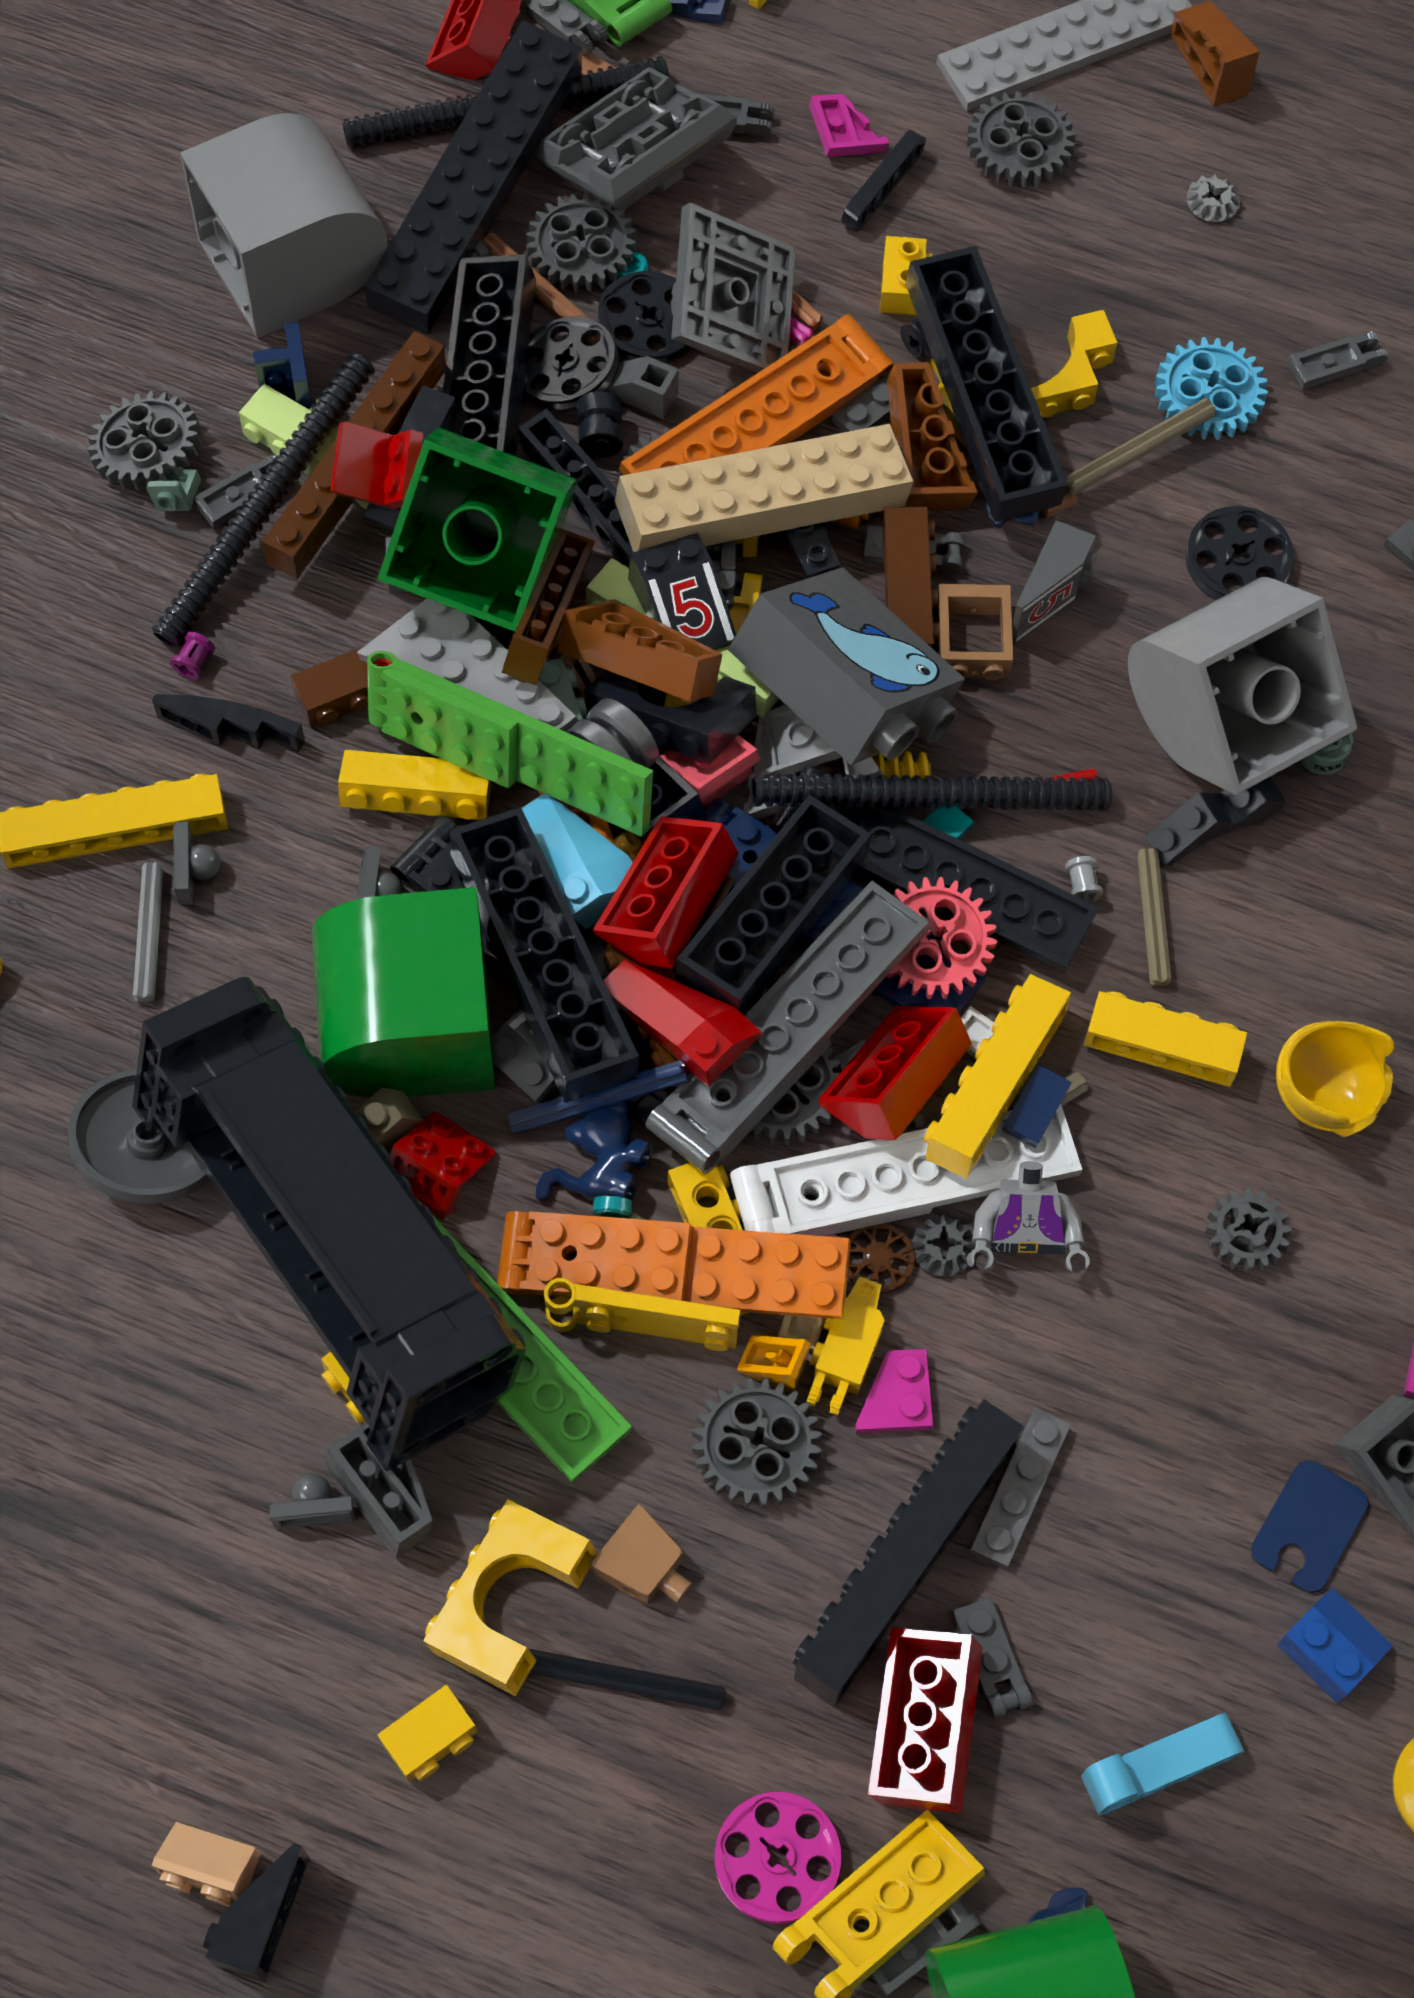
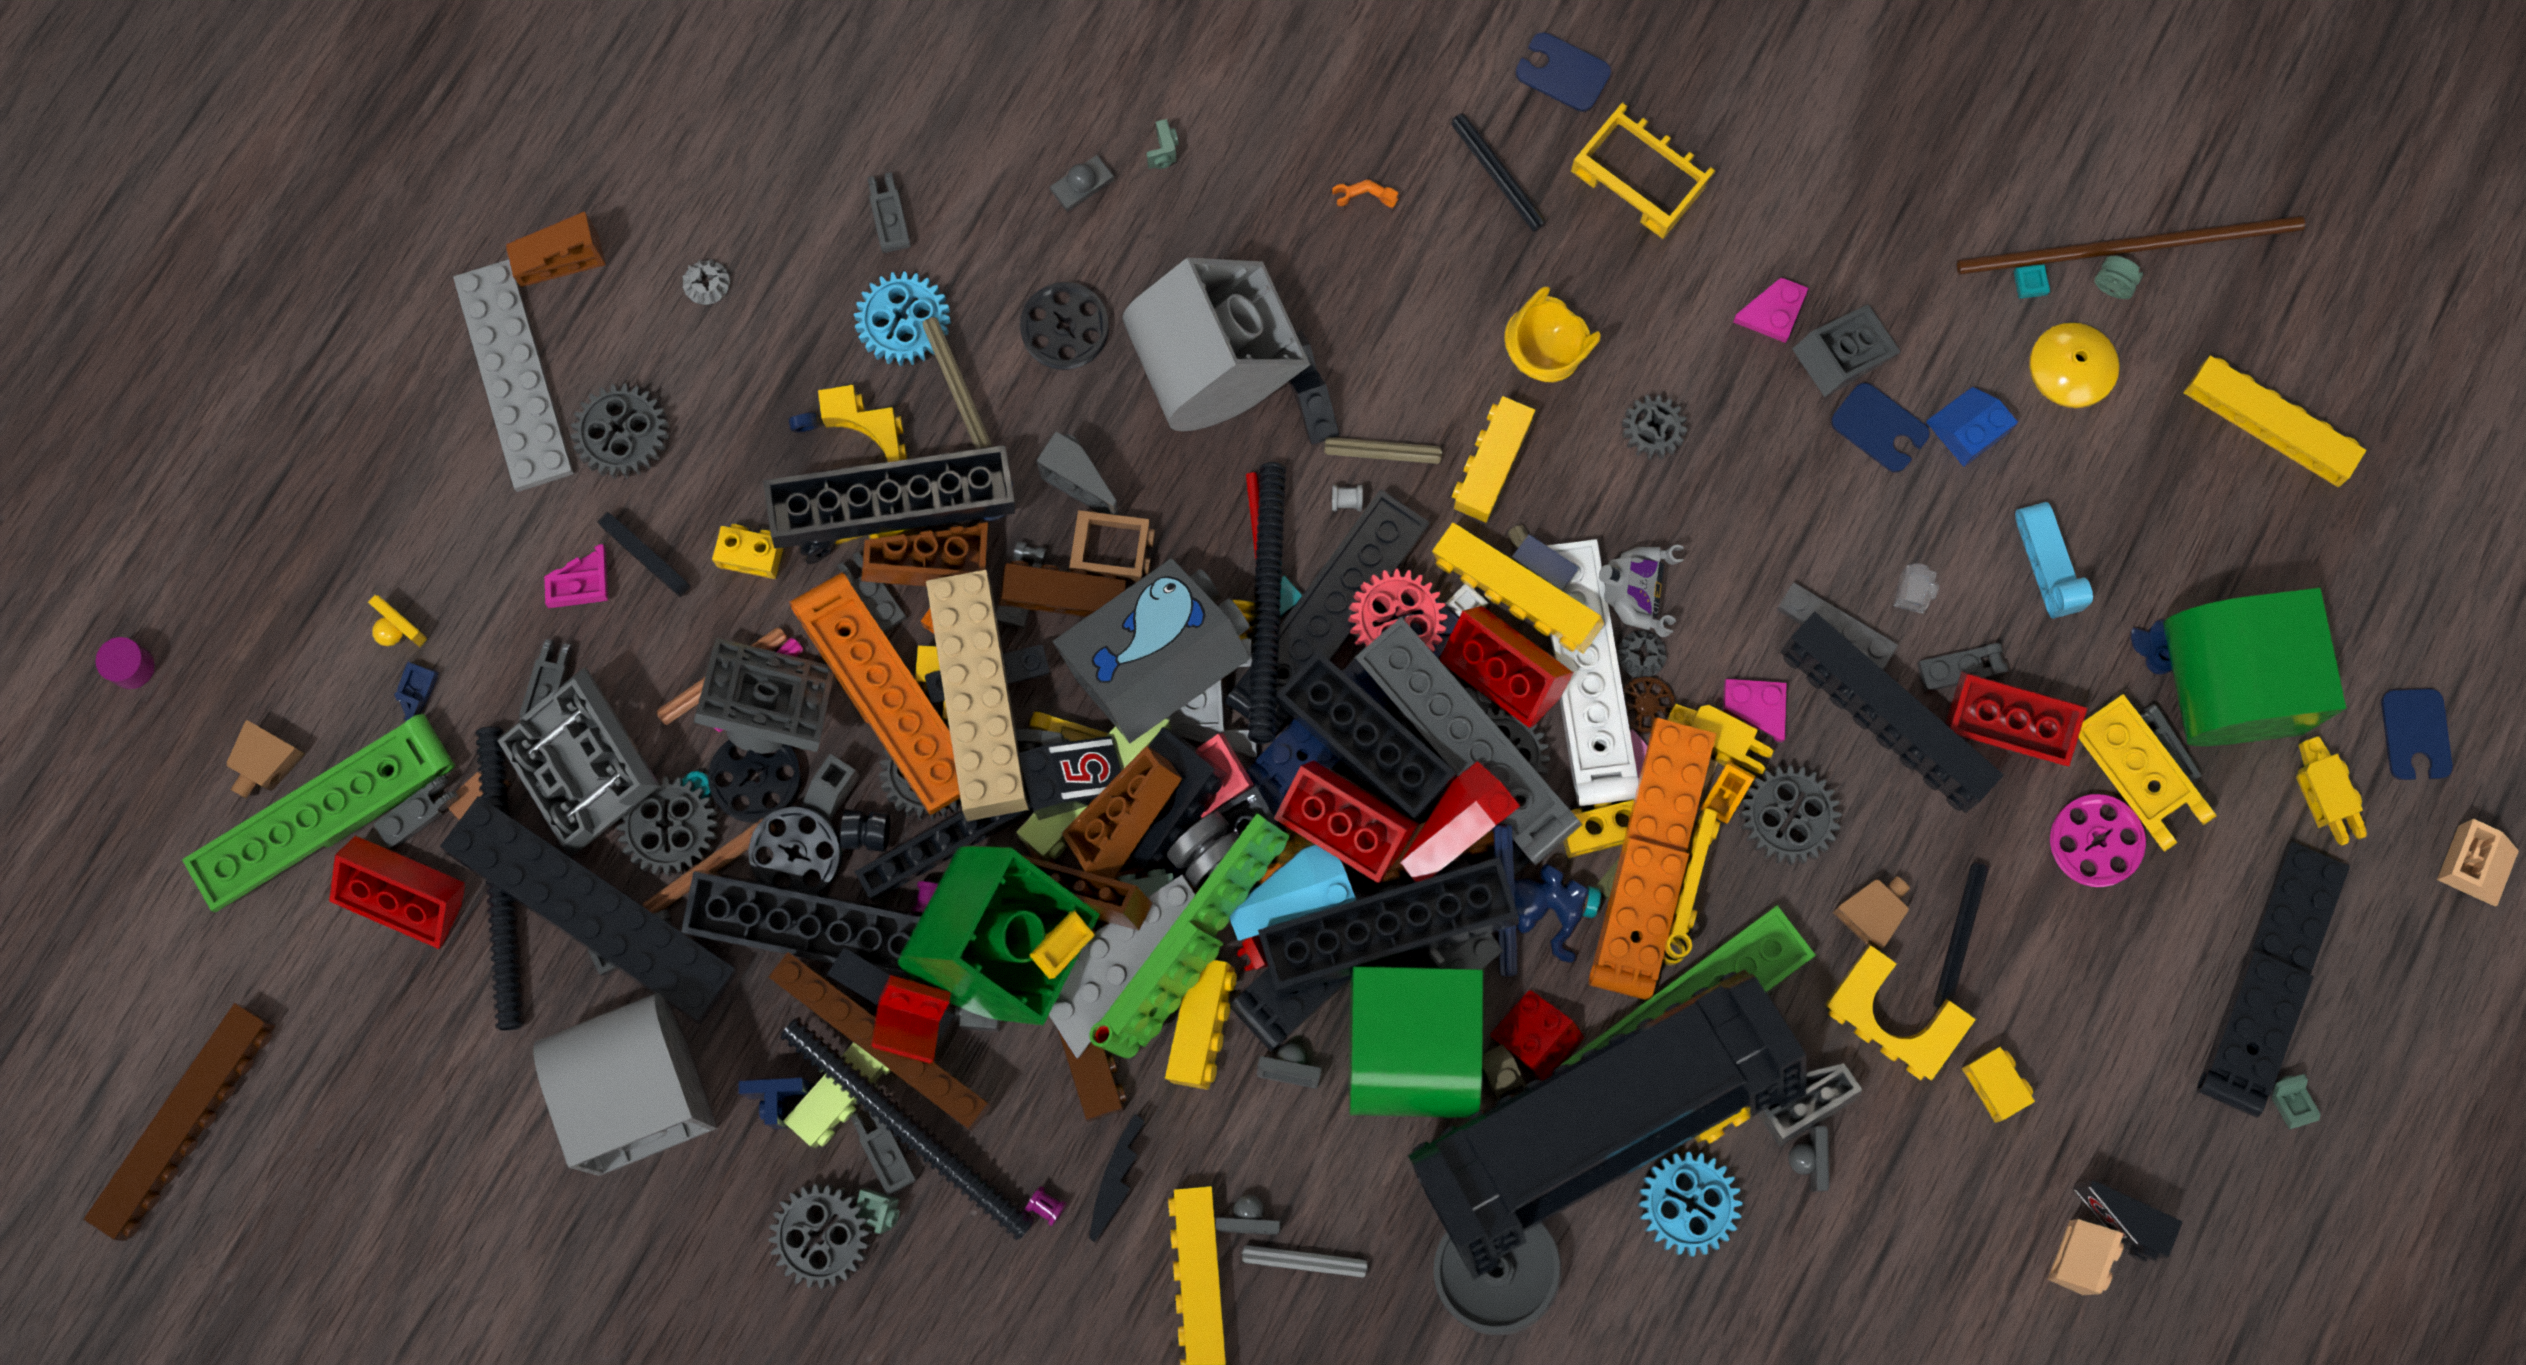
camera: 80 degrees left, 10 degrees up
(277, 1369) = (1702, 1178): none -> medium azure gear
(470, 583) = (1062, 945): none -> yellow tile
(1064, 308) = (804, 422): none -> dark blue tile
(1090, 1583) = (1916, 588): none -> clear brick

